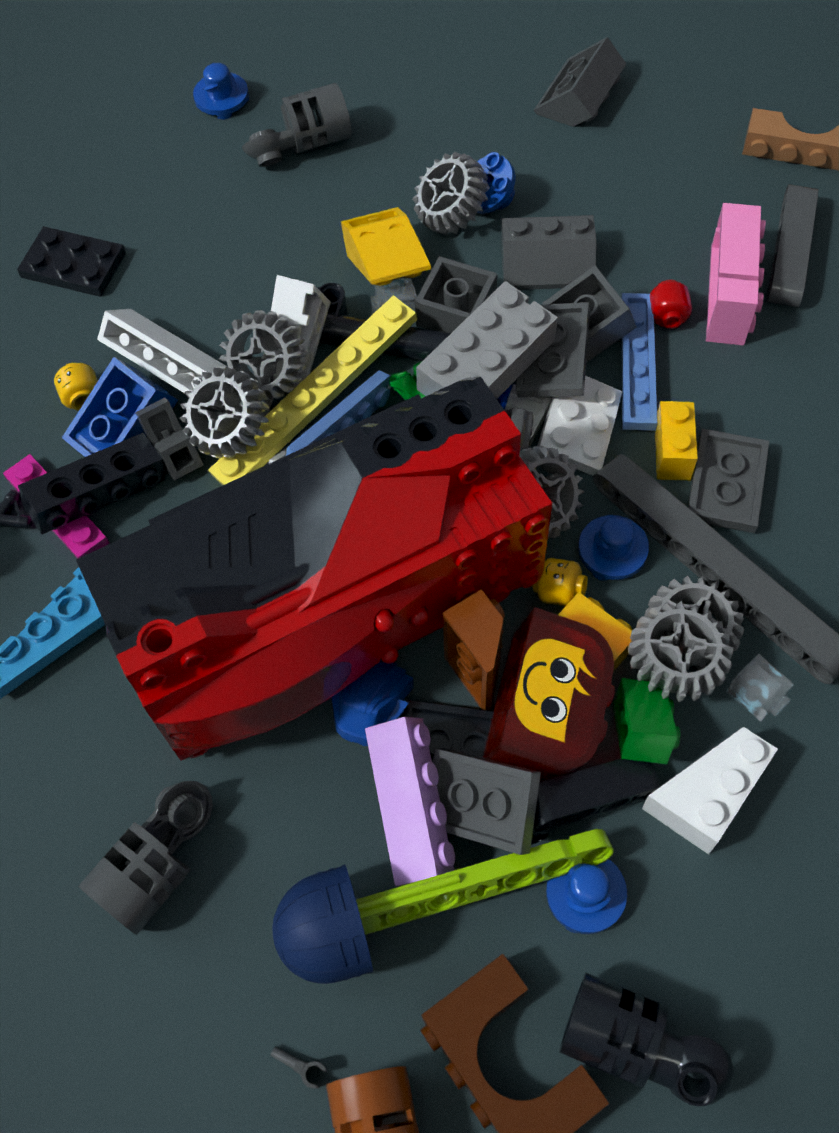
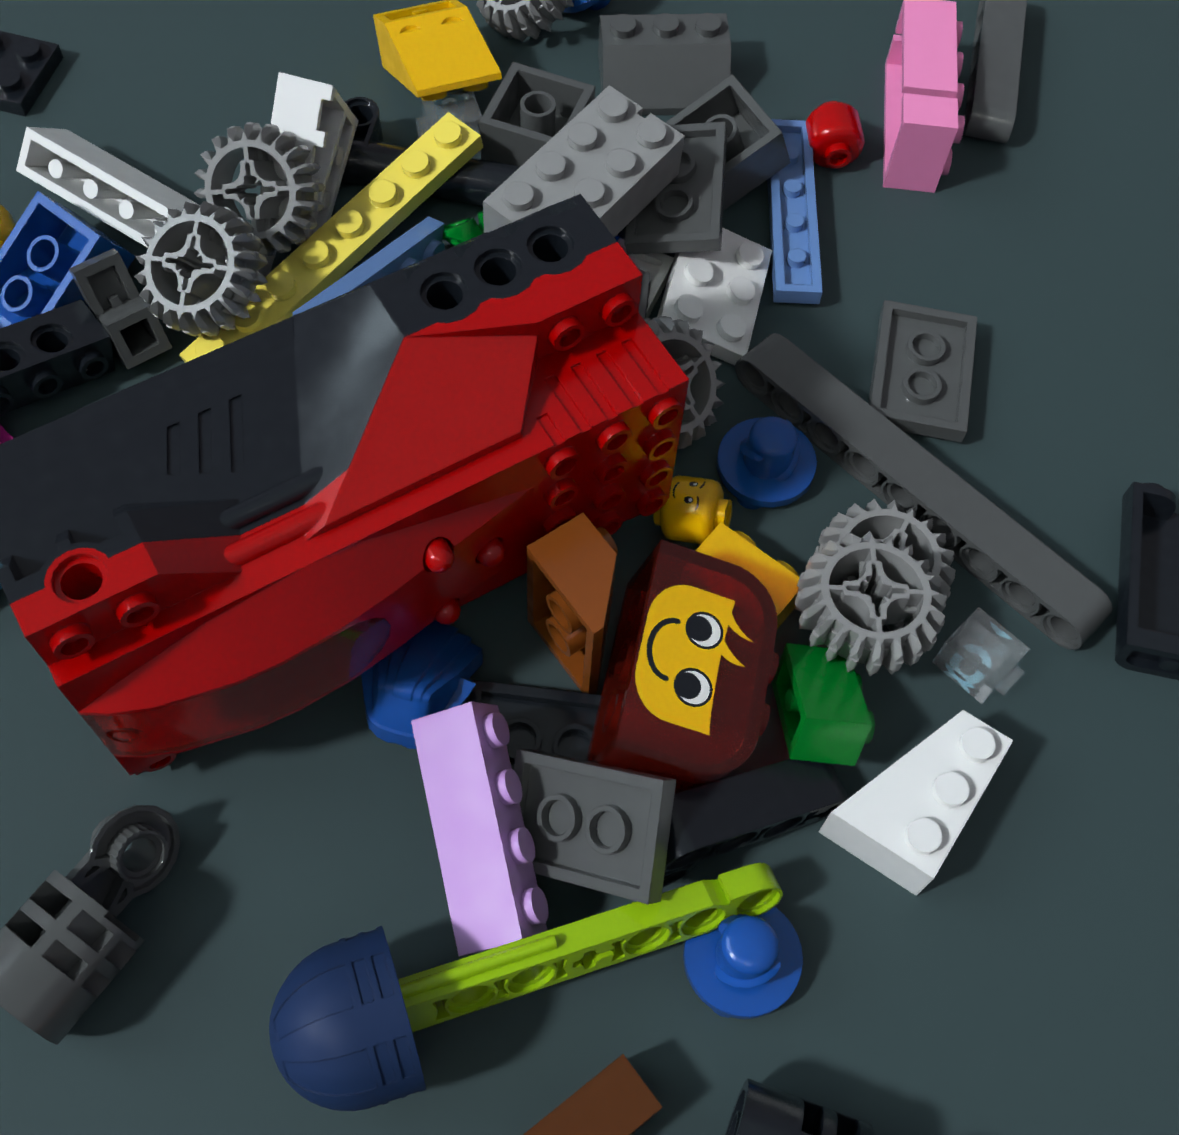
camera: 10 degrees left, 0 degrees up
(675, 441) = (849, 316): yellow brick -> none

